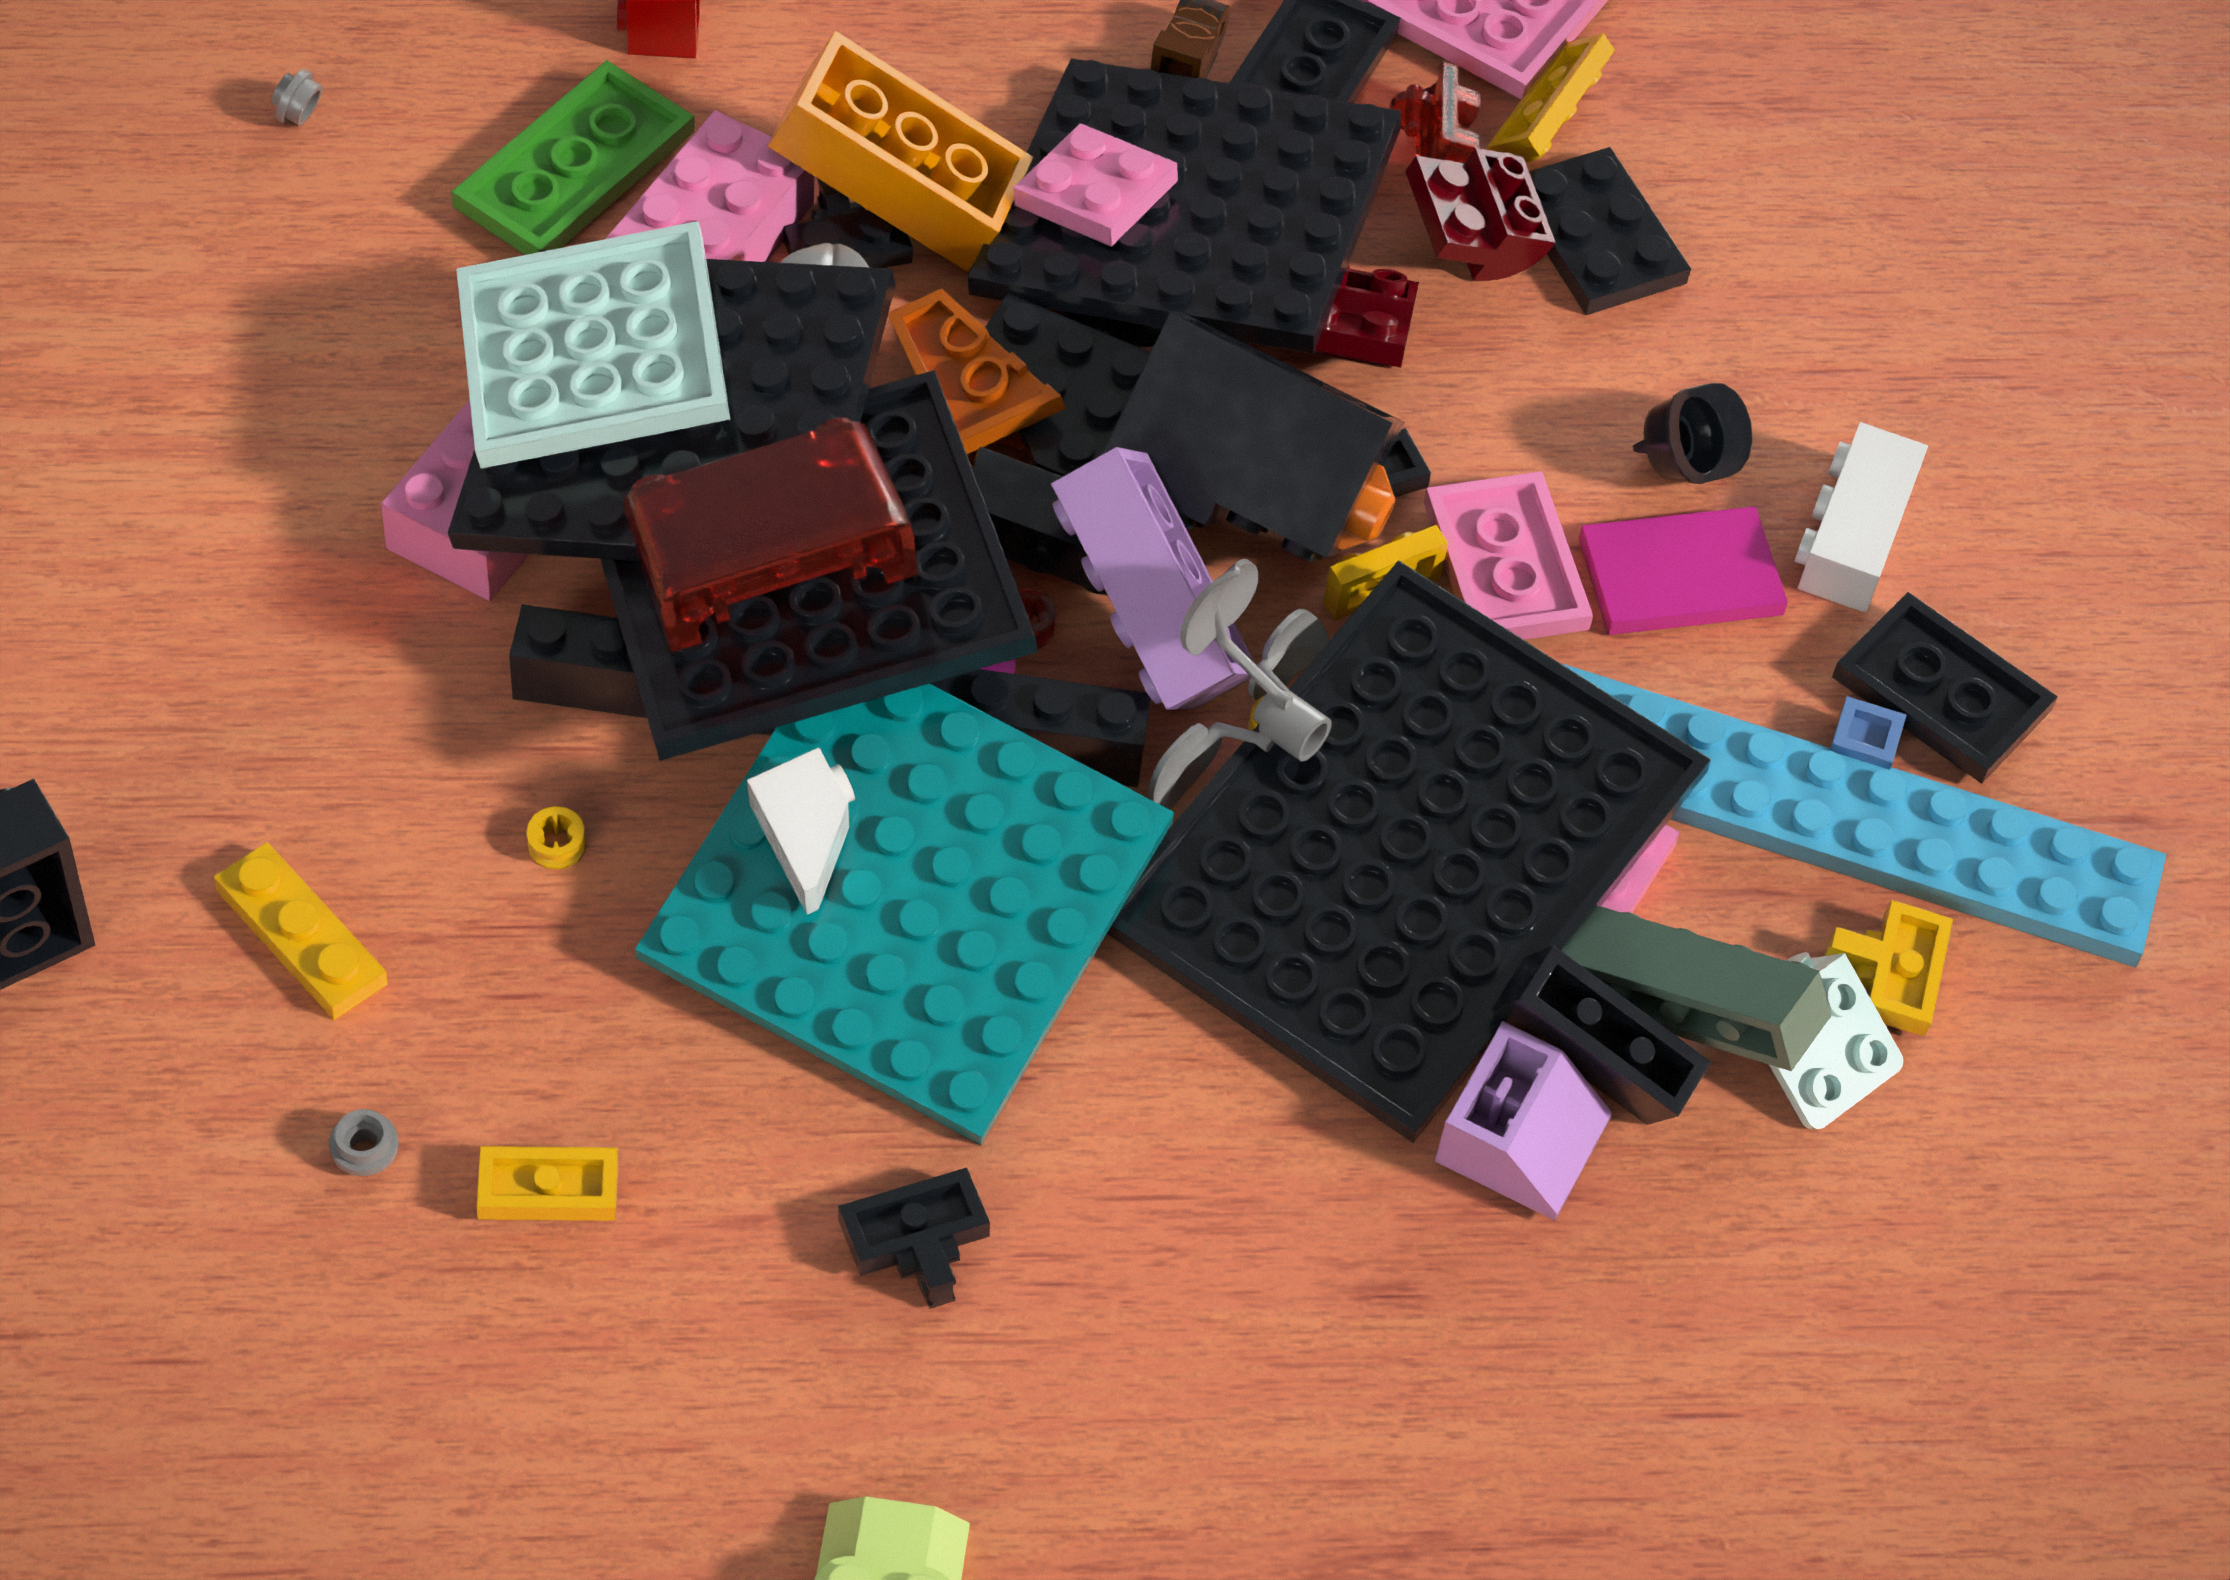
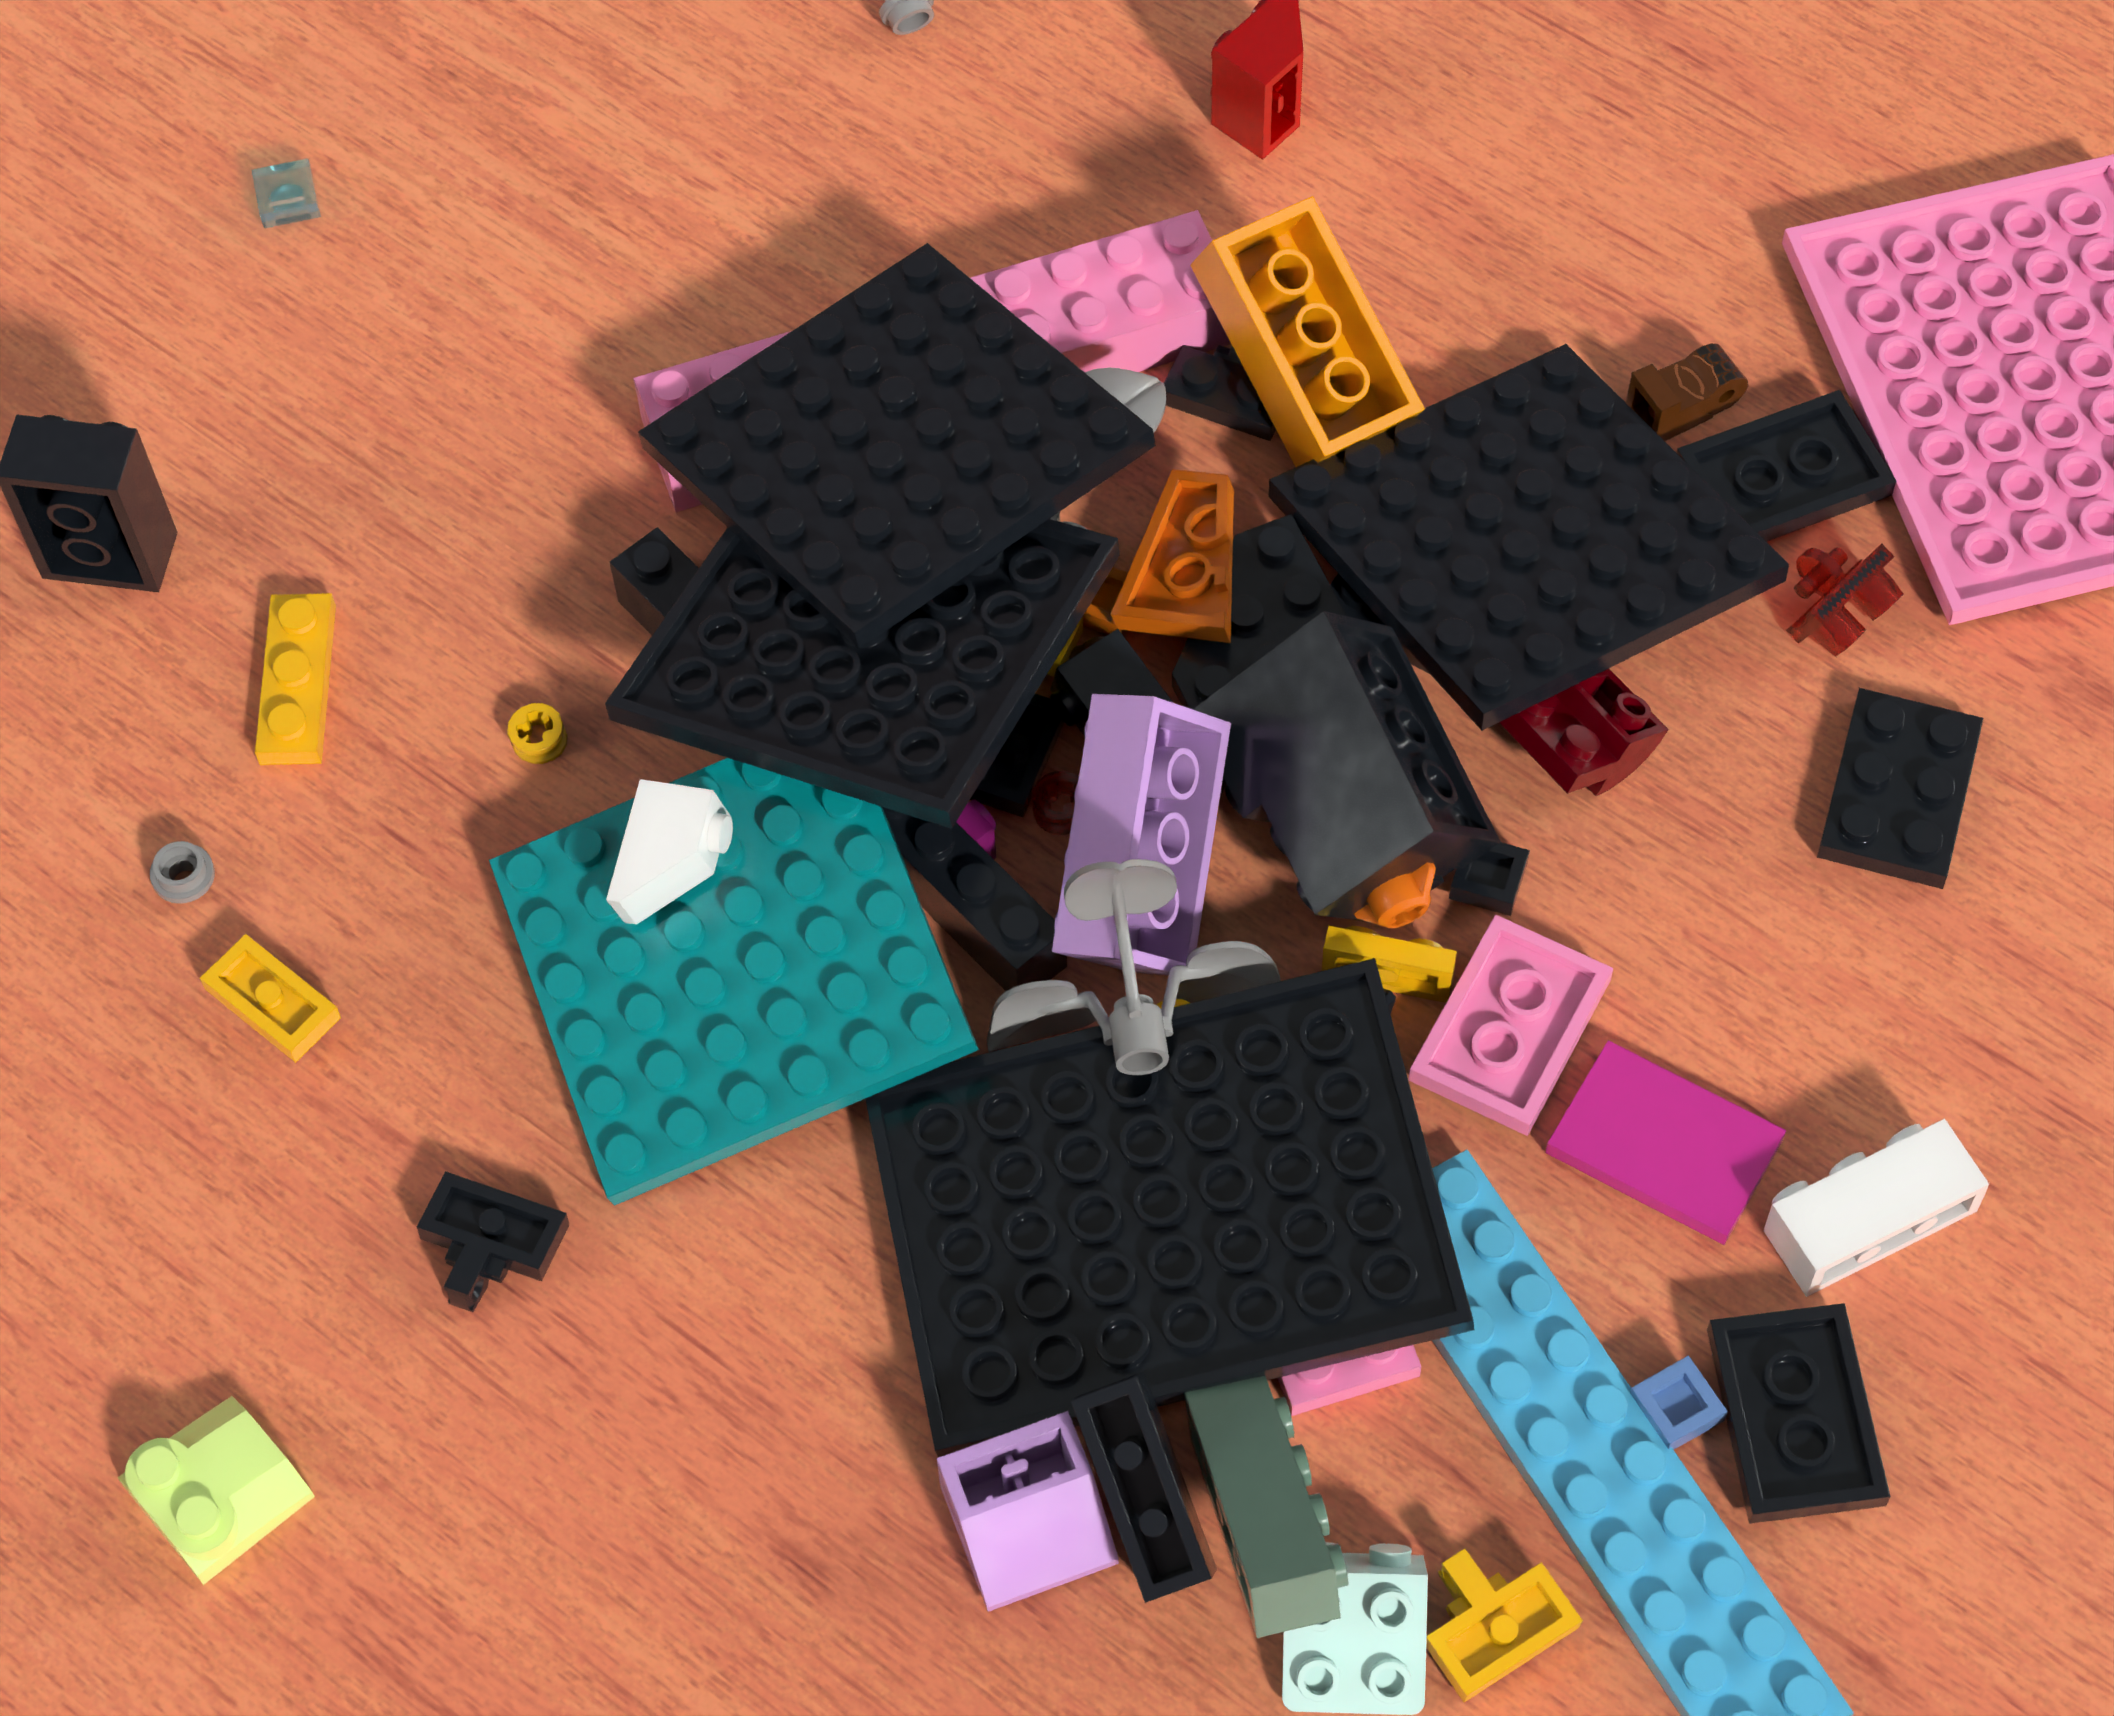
camera: 50 degrees right, 5 degrees up
(573, 161) = (1068, 188): bright green plate -> none
(591, 345) = (862, 345): light aqua plate -> none
(766, 524) = (826, 580): clear red windscreen -> none
(1095, 184) = (1444, 465): bright pink plate -> none
(1482, 212) = (1789, 701): dark red brick -> none
(1553, 98) = (1968, 642): yellow plate -> none
(1698, 434) = (1794, 1032): black piece -> none

